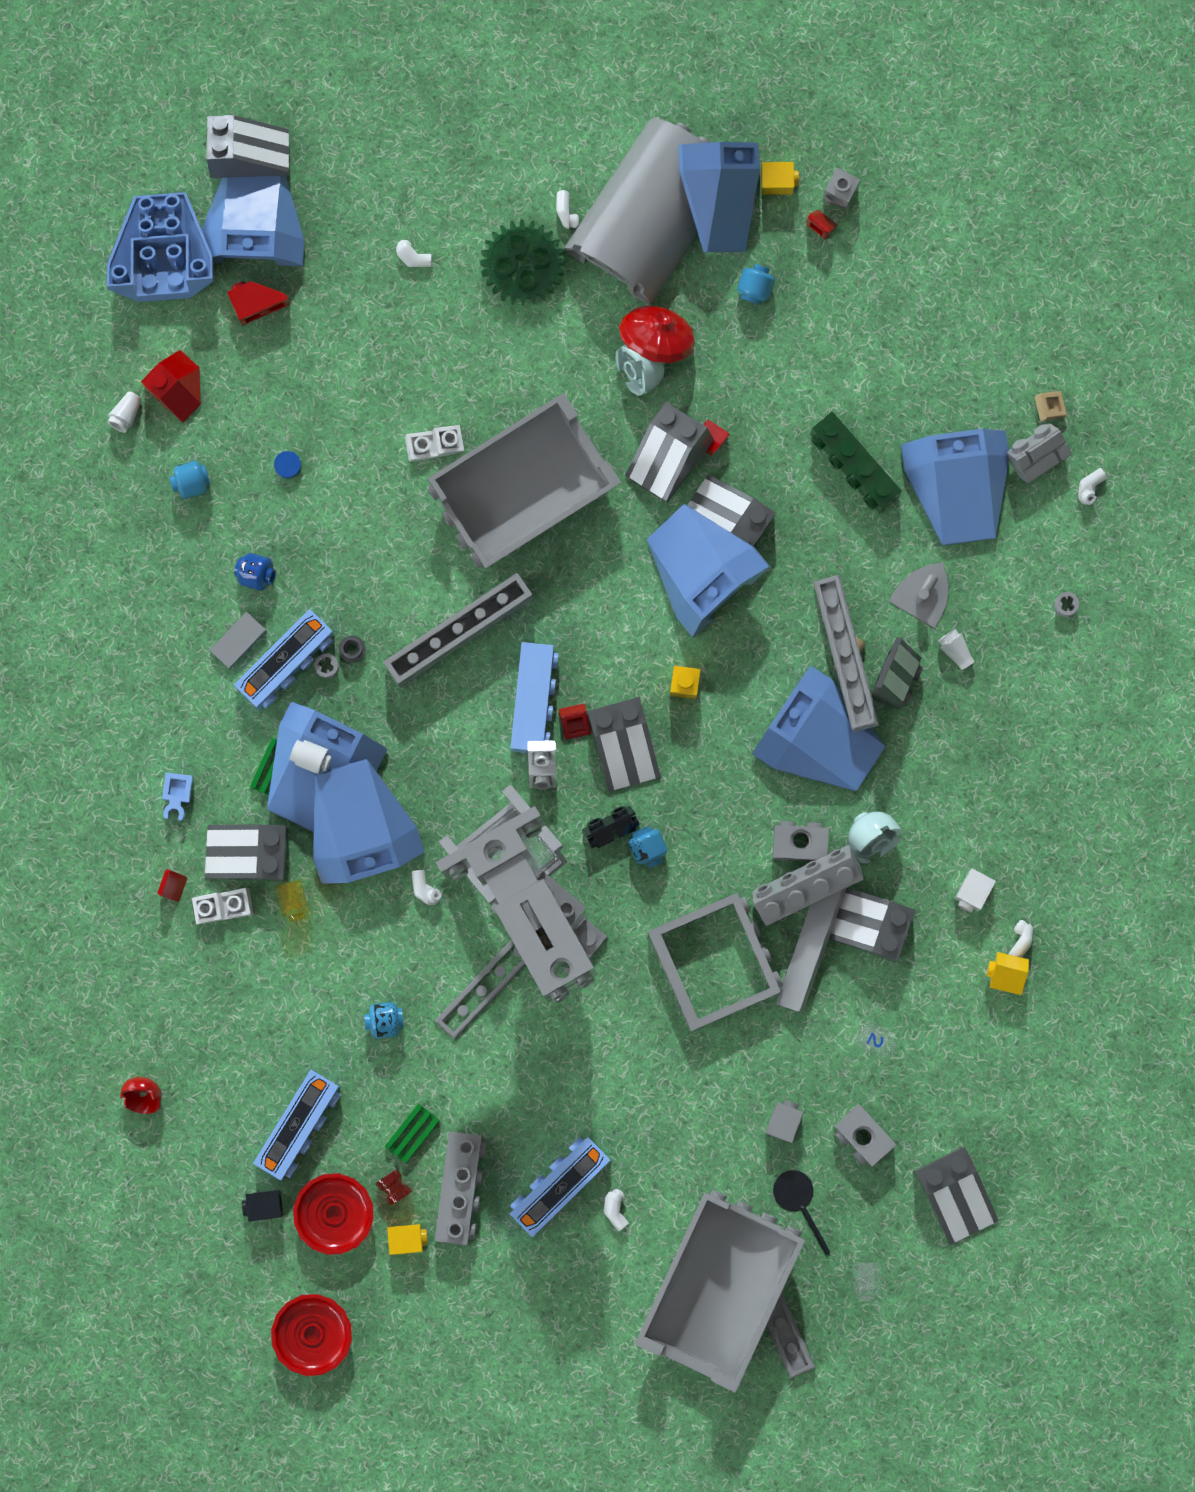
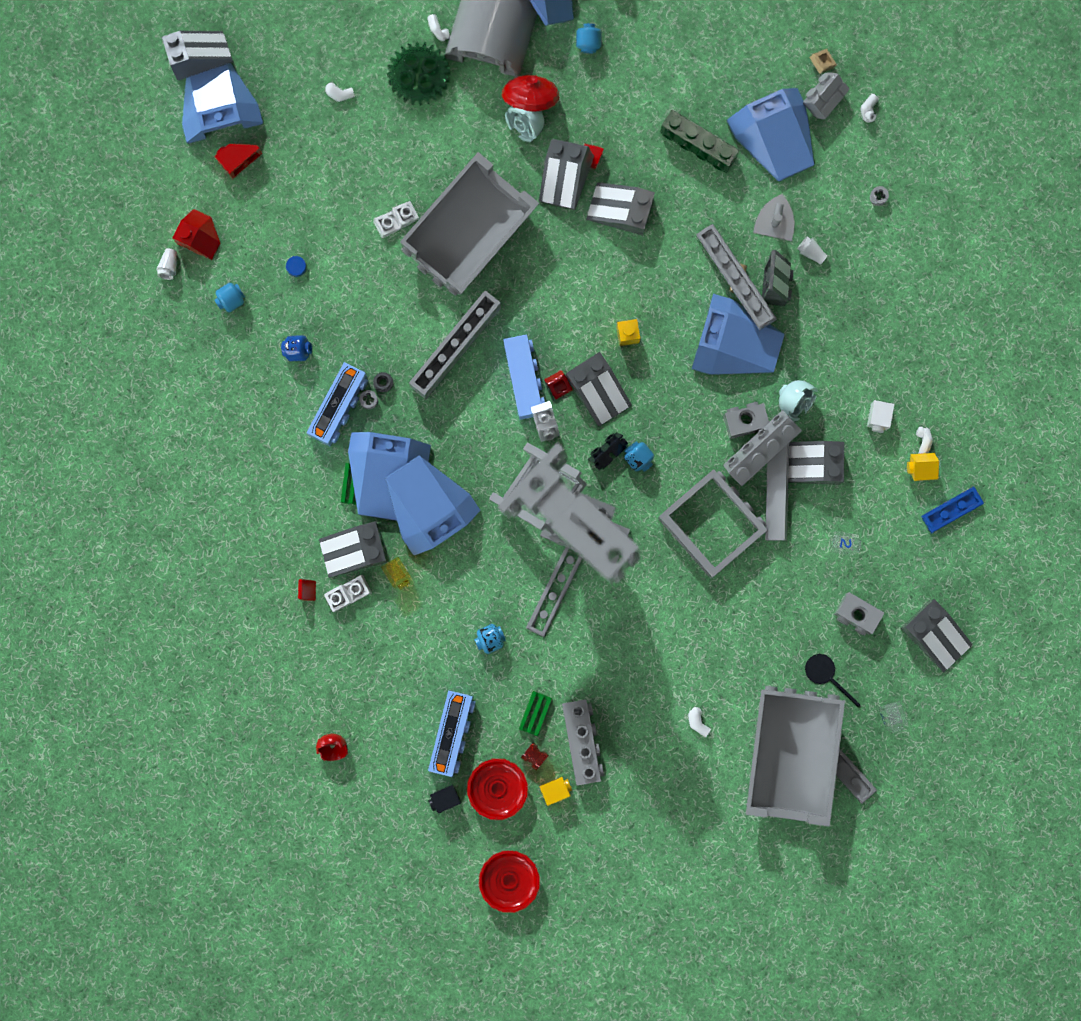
camera: 15 degrees left, 0 degrees up
(160, 251) = (157, 143): medium blue wedge -> none
(177, 790) = (289, 521): light blue plate -> none
(238, 640) = (299, 401): light grey tile -> none
(310, 756) = (378, 465): white brick -> none
(424, 891) = (489, 538): white arm -> none
(559, 1186) = (653, 719): brick -> none
(701, 565) = (614, 246): medium blue wedge -> none
(784, 1121) = (798, 621): light grey brick -> none
(1029, 1040) = (952, 509): none -> blue tile

